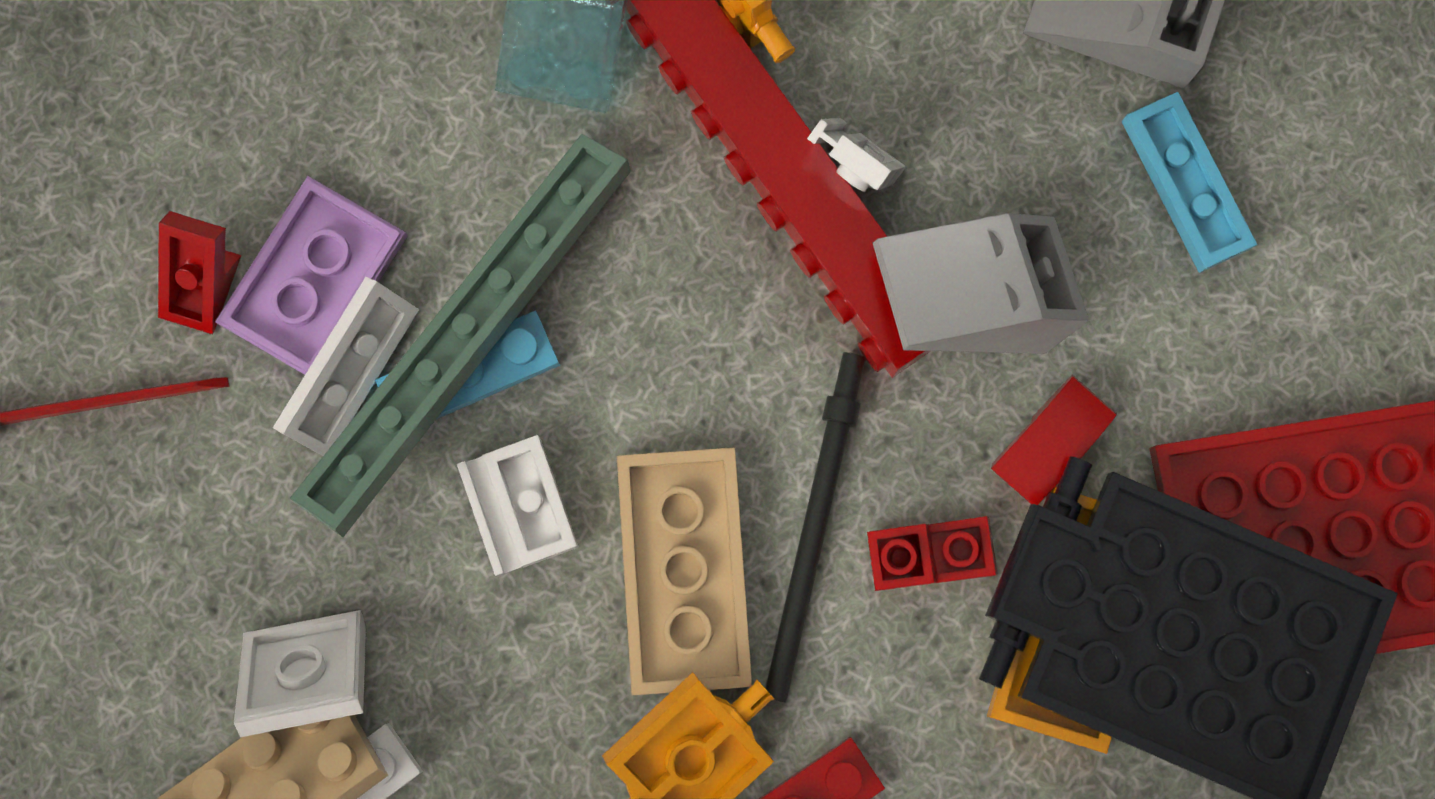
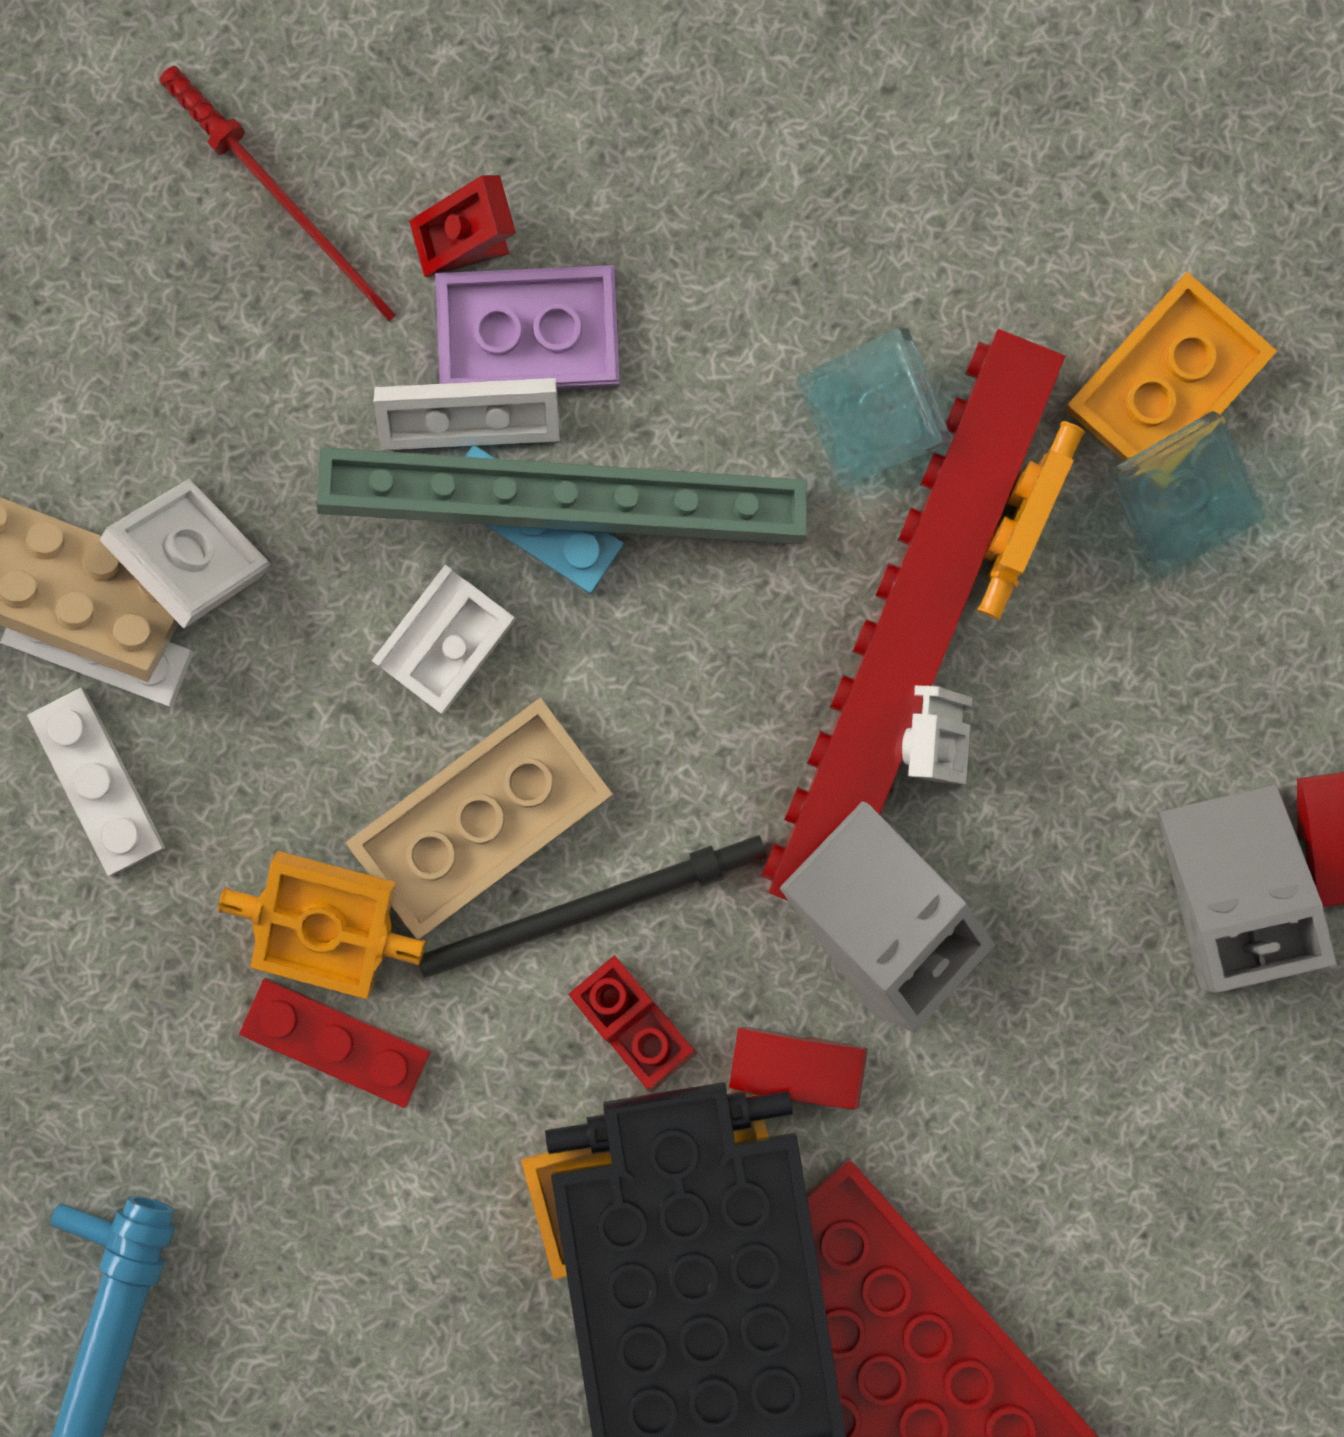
camera: 60 degrees right, 5 degrees up
(1188, 182) = (1112, 1045): medium azure plate -> none

